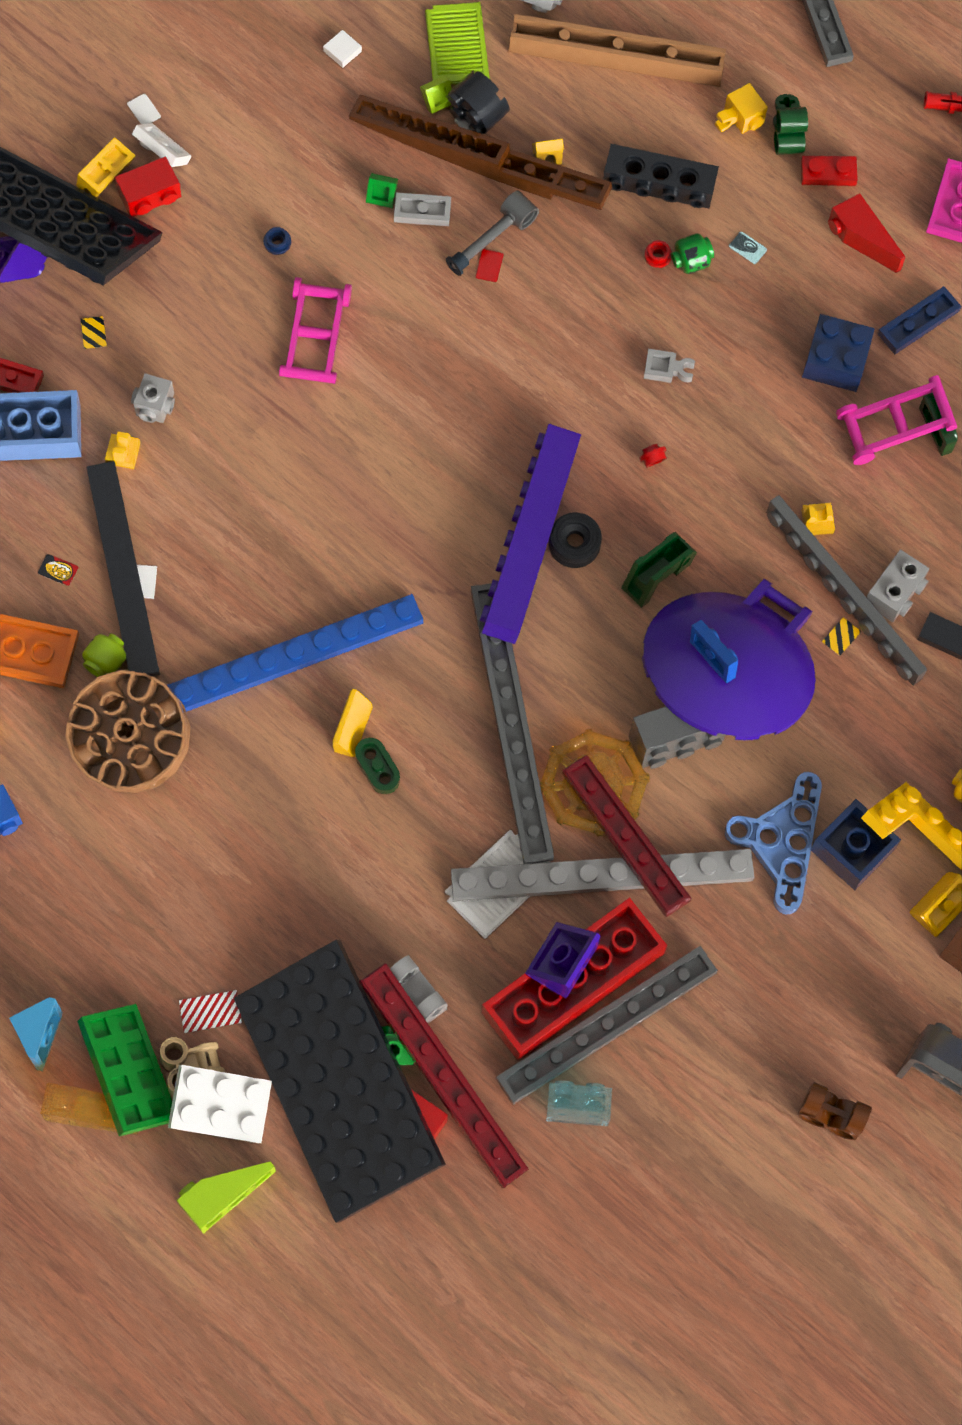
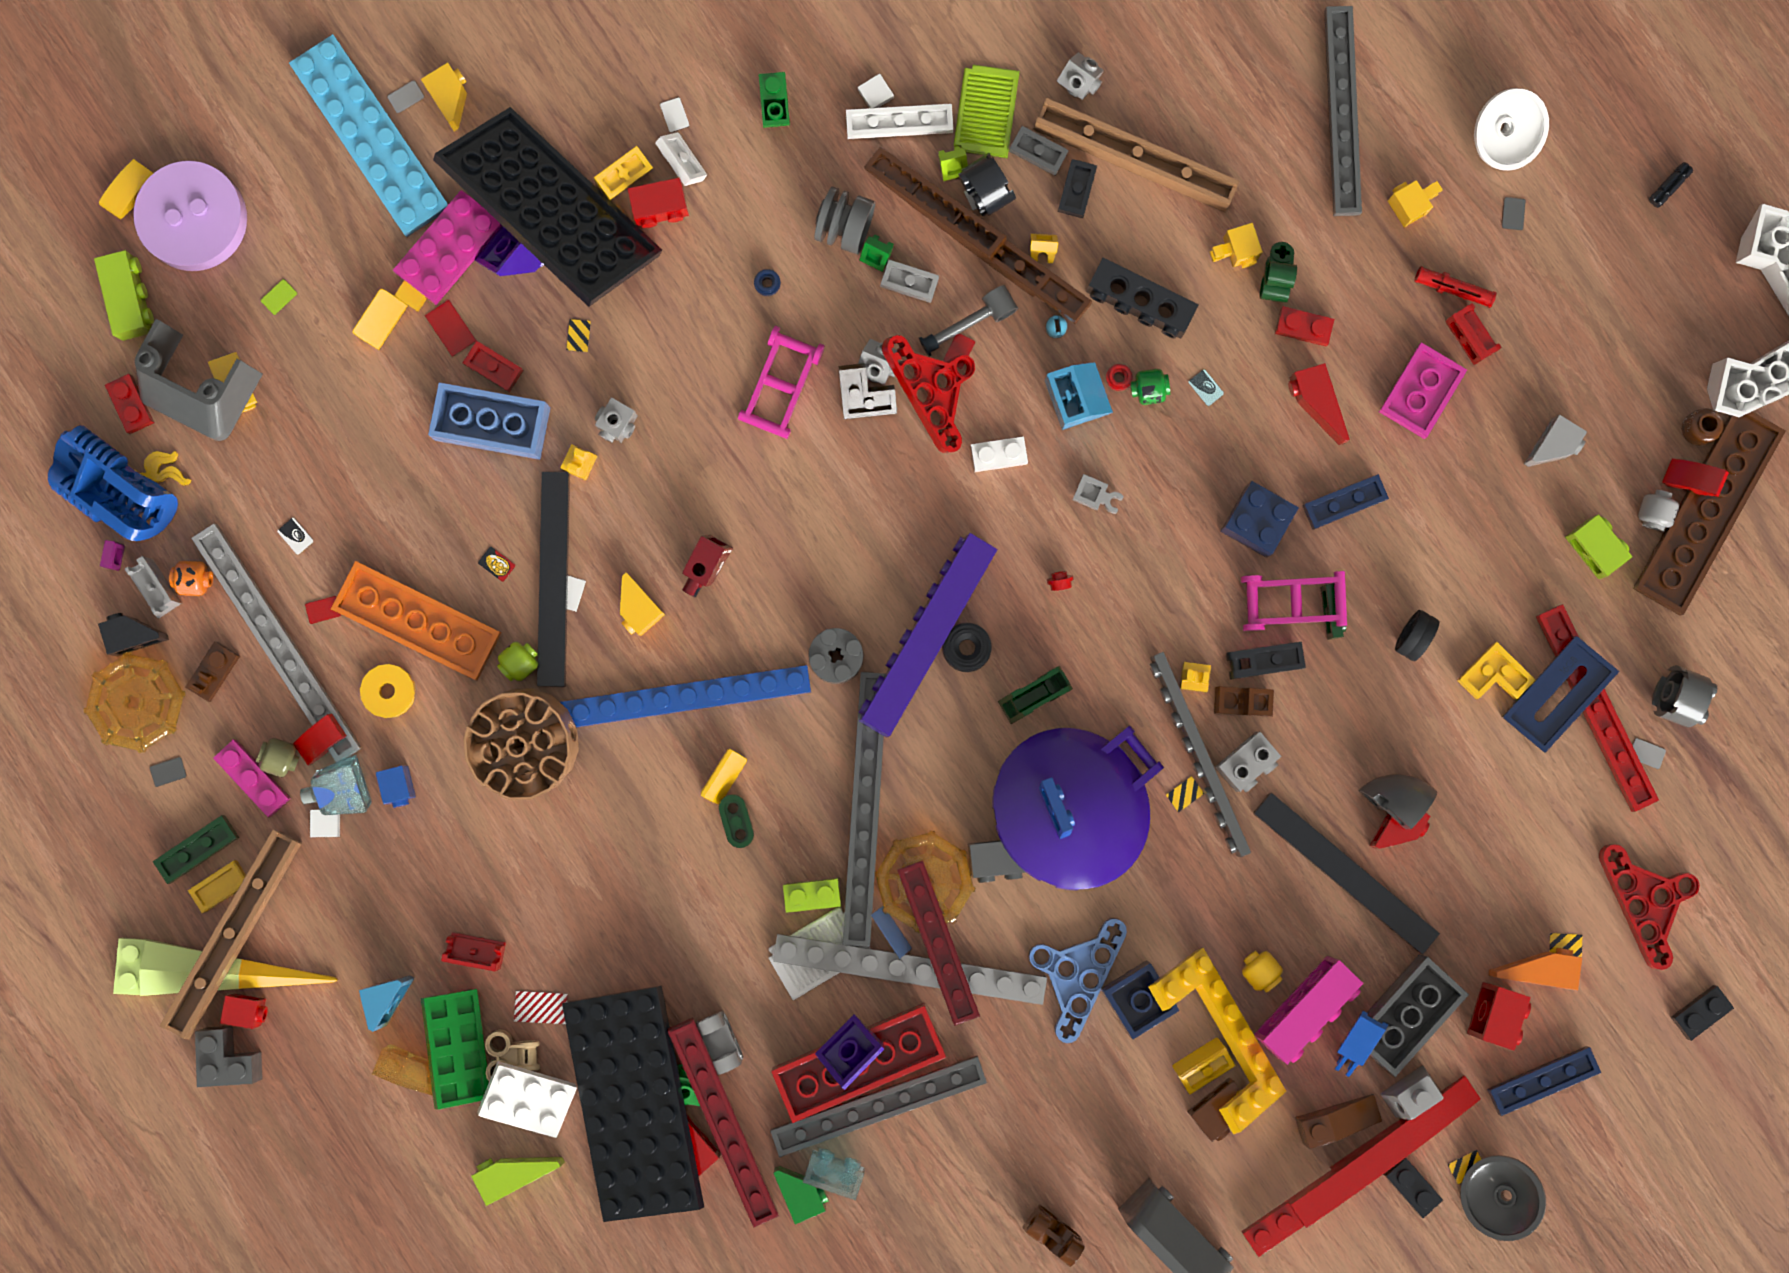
camera: 15 degrees right, 15 degrees up
(124, 967) = (474, 952): none -> red hinge
(221, 575) = (637, 607): none -> yellow slope
(242, 69) = (774, 99): none -> green slope
(284, 504) = (710, 553): none -> dark red torso
(342, 162) = (844, 220): none -> dark grey wheel
(373, 68) = (899, 121): none -> white plate
(401, 327) = (859, 399): none -> plate
(411, 287) = (876, 364): none -> light grey brick
(446, 561) = (831, 641): none -> dark grey brick
(478, 820) = (812, 895): none -> lime brick
(483, 309) = (938, 399): none -> red beam
(519, 66) = (1038, 150): none -> dark grey plate
(547, 1137) = (801, 1199): none -> green slope
(557, 351) = (999, 454): none -> white plate
(567, 92) = (1077, 188): none -> black plate
(571, 838) = (891, 932): none -> medium blue sticker
(576, 221) = (1050, 326): none -> medium azure hinge
(619, 276) = (1077, 394): none -> dark azure slope
(875, 532) = (1244, 701): none -> reddish brown slope
(885, 485) = (1267, 660): none -> black plate
(898, 37) = (1412, 202): none -> yellow brick

